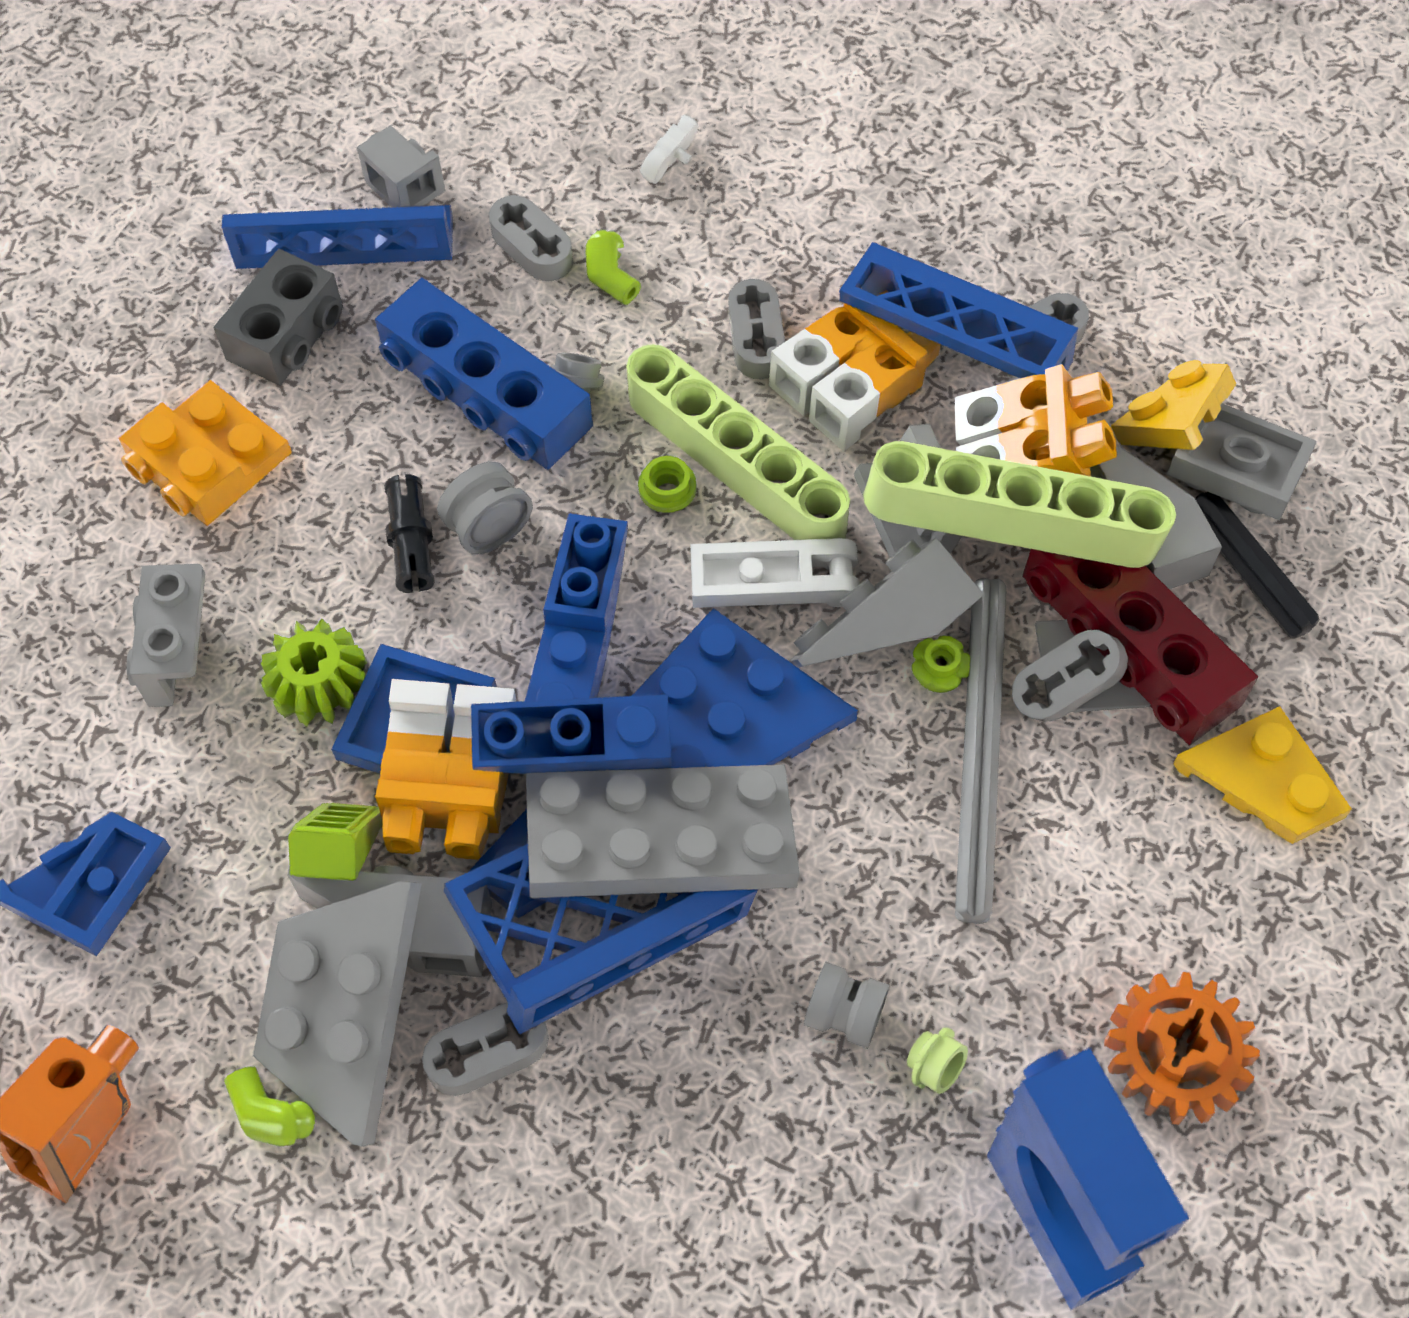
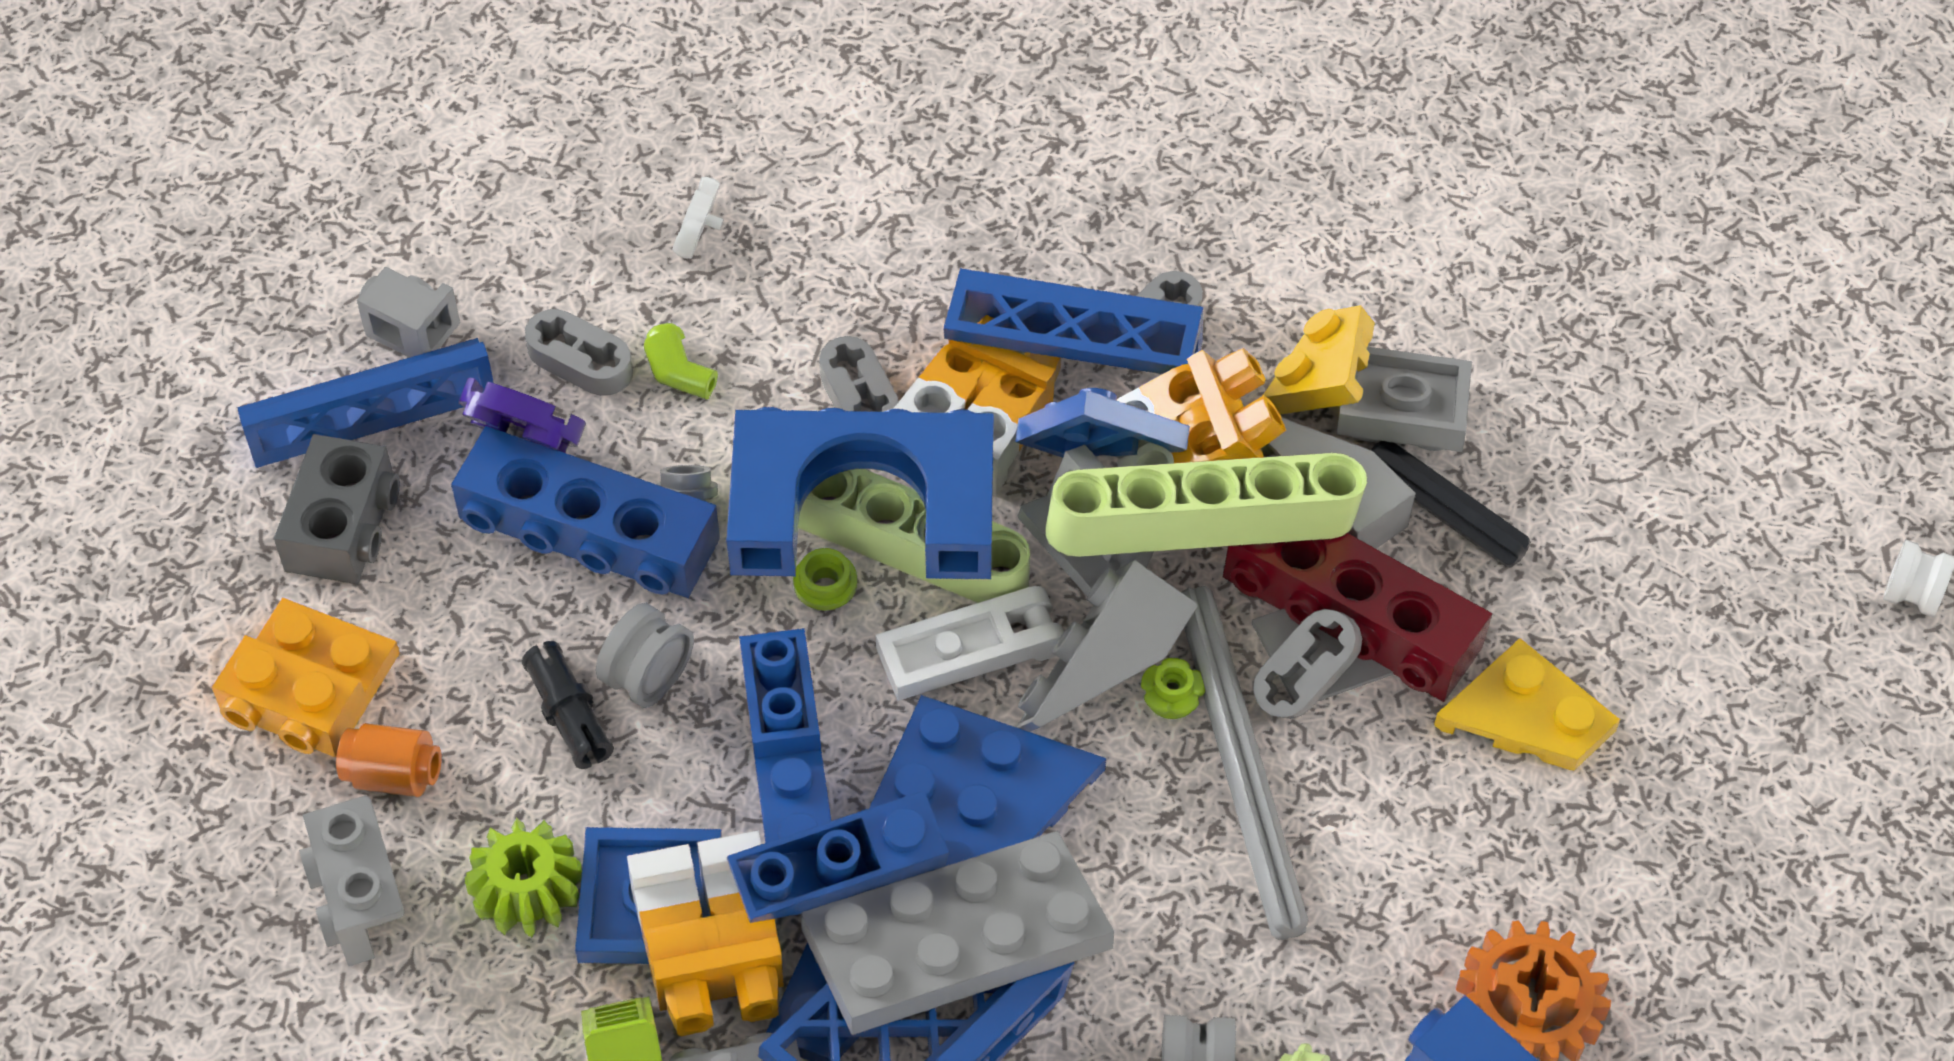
camera: 20 degrees left, 5 degrees down
(242, 539) = (388, 759): none -> orange brick
(443, 268) = (506, 408): none -> dark purple plate
(662, 364) = (790, 452): none -> blue arch
(948, 408) = (1100, 424): none -> wing

